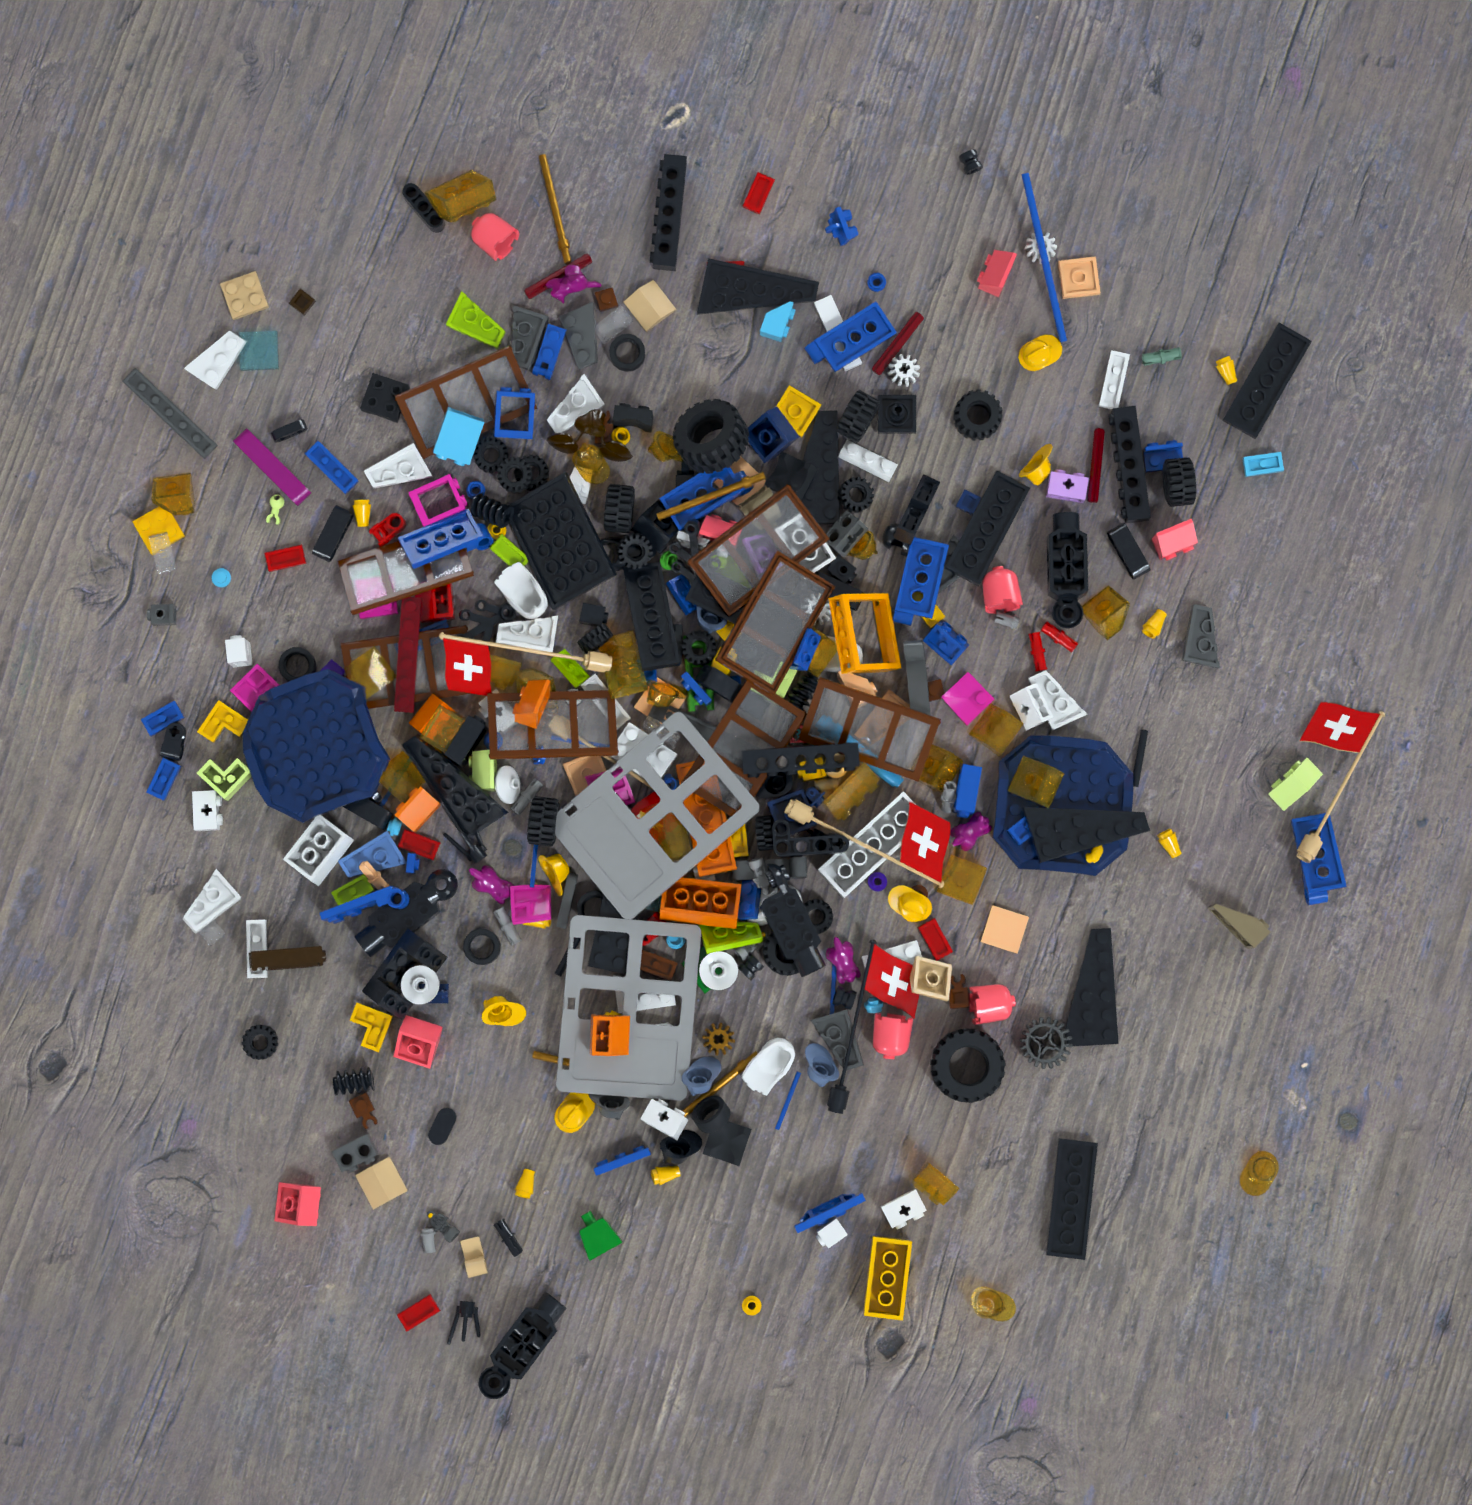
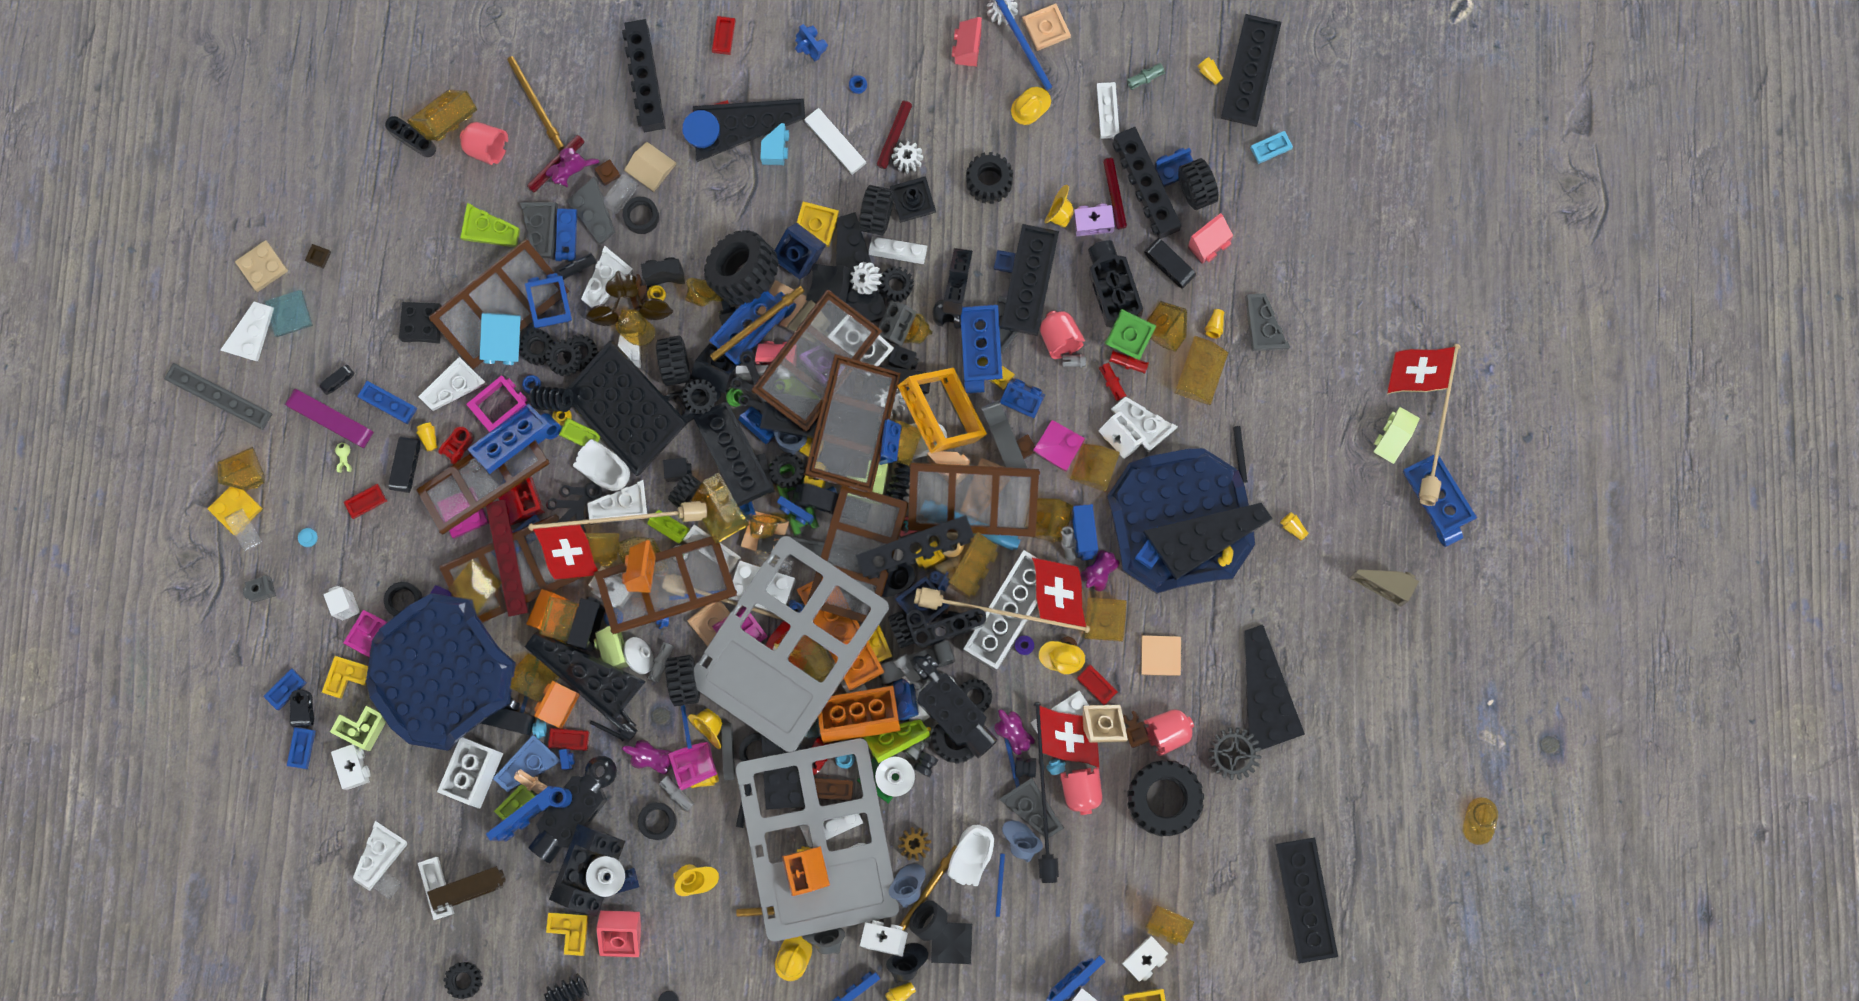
camera: 10 degrees left, 5 degrees down
(551, 385) = (577, 266): none -> black pin
(710, 284) = (701, 129): none -> blue tile
(824, 346) = (825, 155): blue hinge -> none
(828, 481) = (865, 278): none -> white gear
(1036, 782) = (1148, 503): clear yellow slope -> none
(1068, 612) = (1130, 334): none -> bright green plate
(1127, 666) = (1201, 370): none -> clear yellow slope

